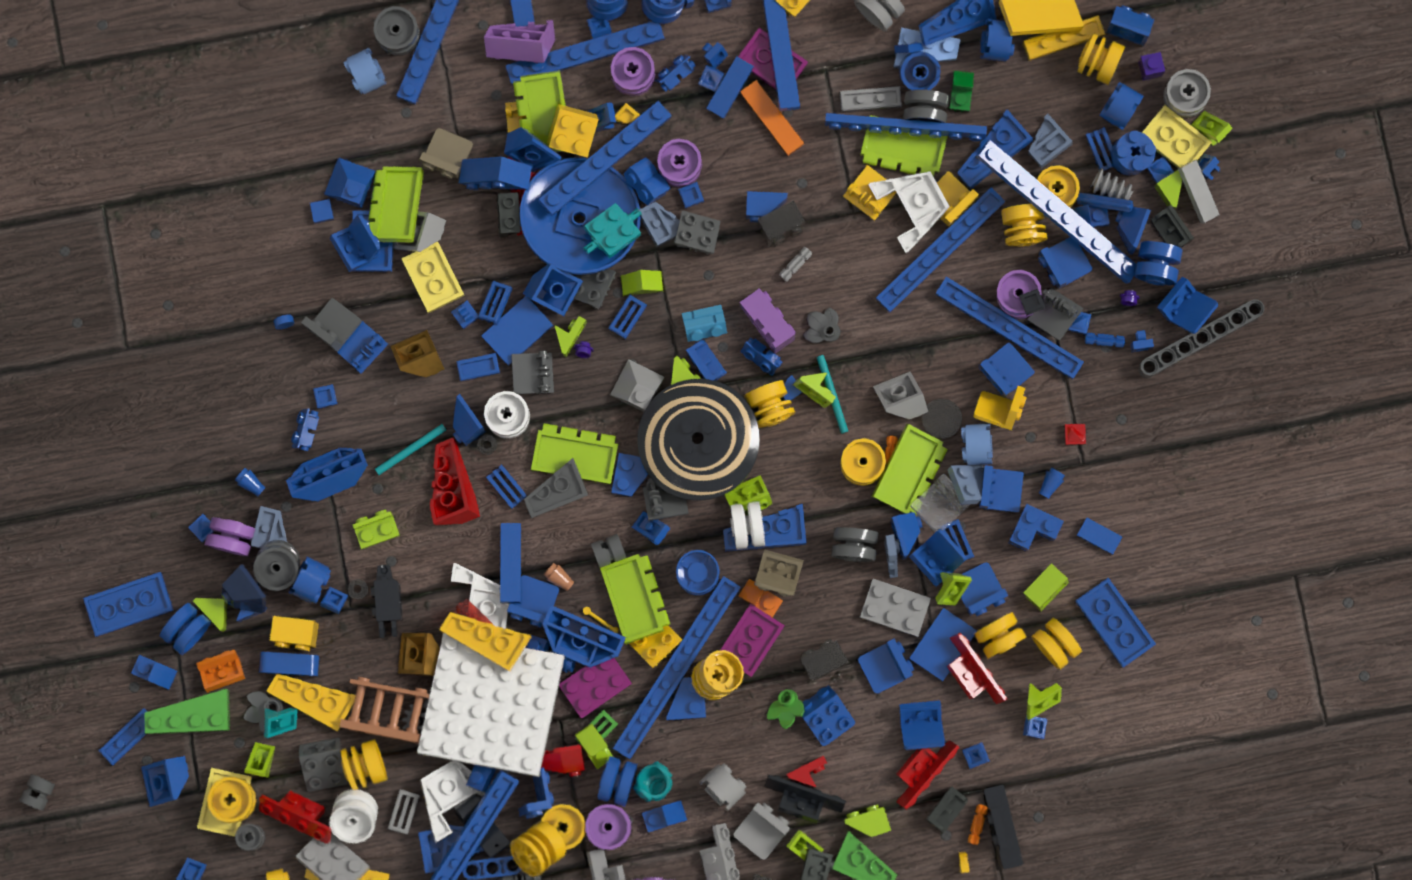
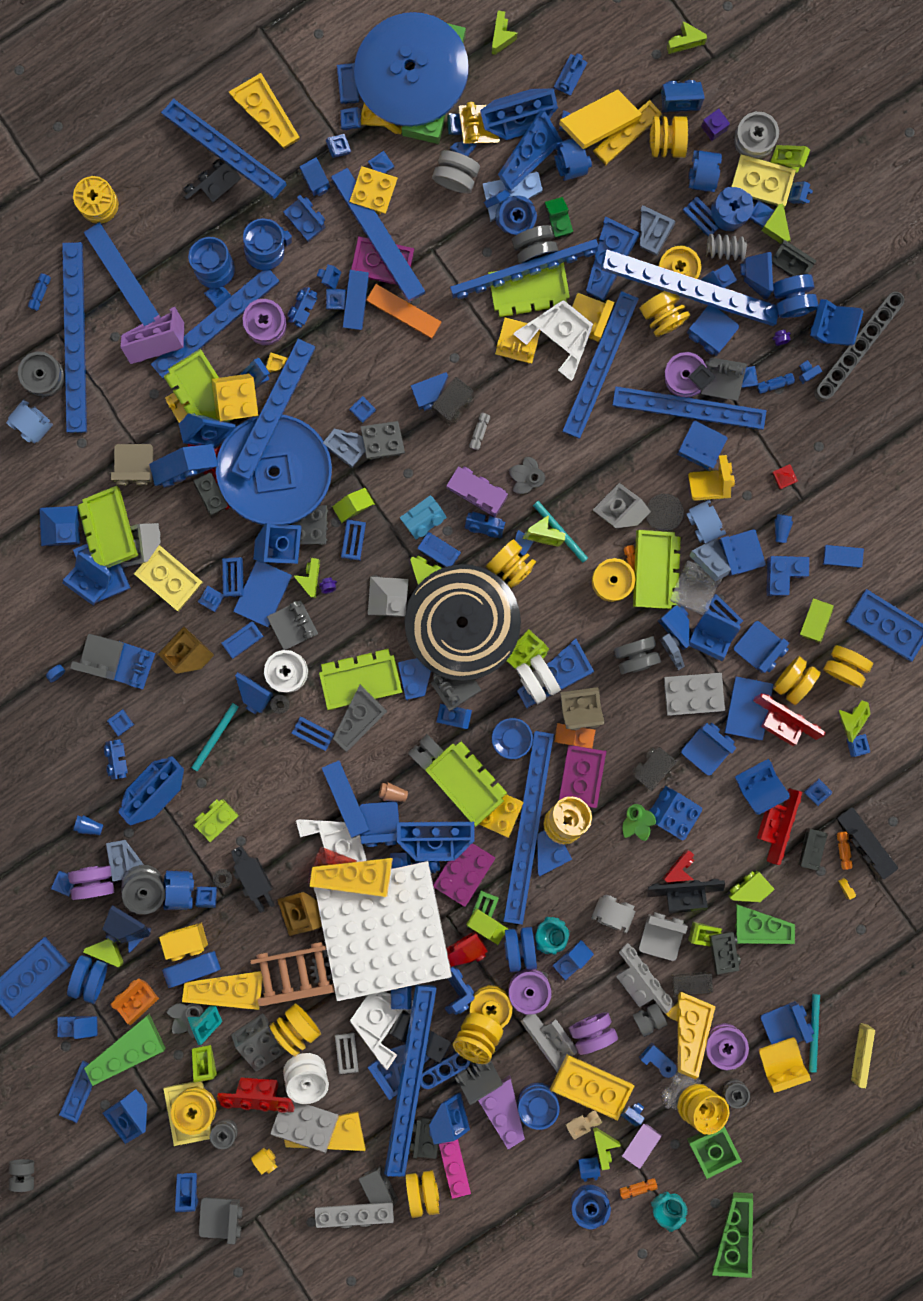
camera: 25 degrees left, 5 degrees up
(322, 211) = (46, 561): blue tile -> none
(452, 491) = (268, 758): red wedge -> none
(587, 611) = (429, 811): yellow hinge -> none
(612, 230) = (308, 470): teal plate -> none
(646, 181) = (318, 414): blue brick -> none
(676, 151) = (340, 374): medium lavender wheel -> none
(870, 99) = (482, 258): light grey tile -> none
(953, 588) = (738, 656): lime slope -> none
(1105, 202) = (727, 262): blue axle -> none
(1198, 191) = (803, 218): light grey tile -> none

